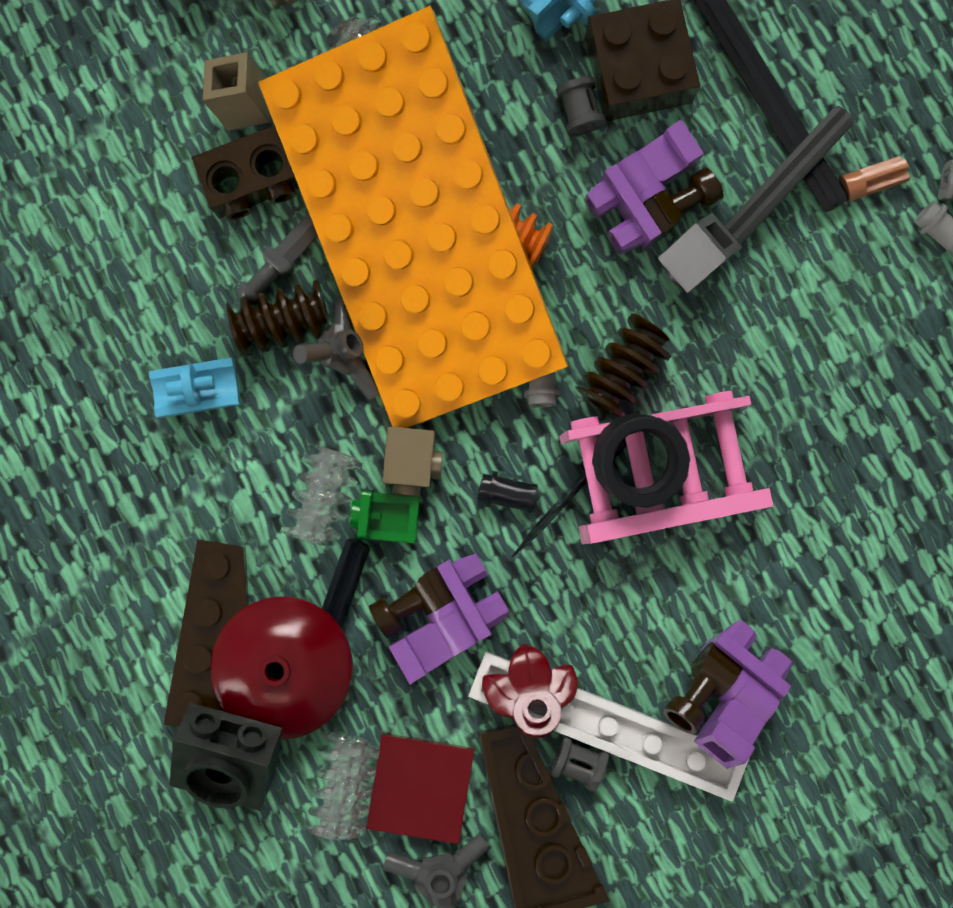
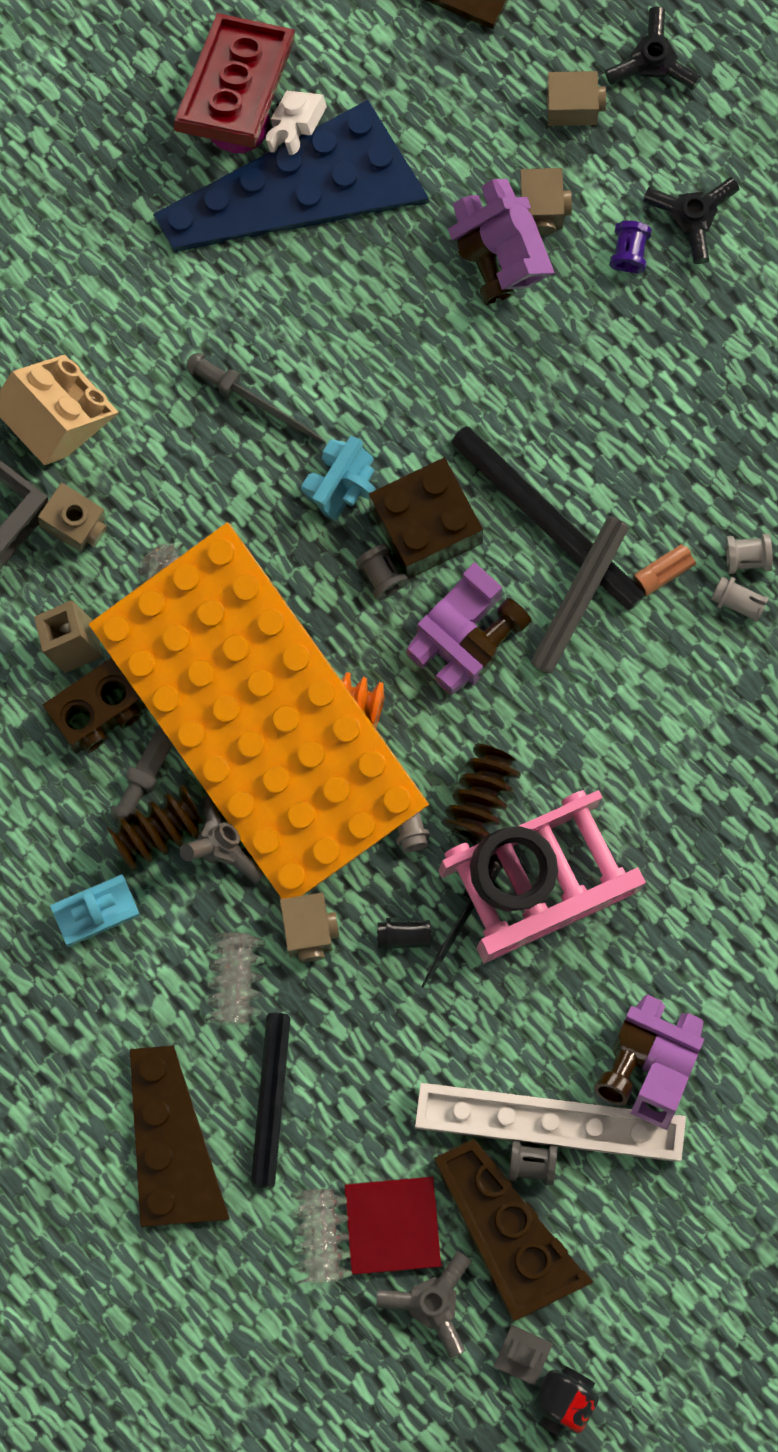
camera: 10 degrees left, 10 degrees down
(224, 758) = (206, 1235): pearl dark grey brick -> none
(307, 646) = (258, 1168): dark red dish -> none
(385, 517) = (298, 984): green bracket -> none
(452, 612) = (382, 1056): medium lavender hips -> none
(531, 684) = (469, 1099): dark red plate -> none
(699, 253) = (521, 675): brick -> none

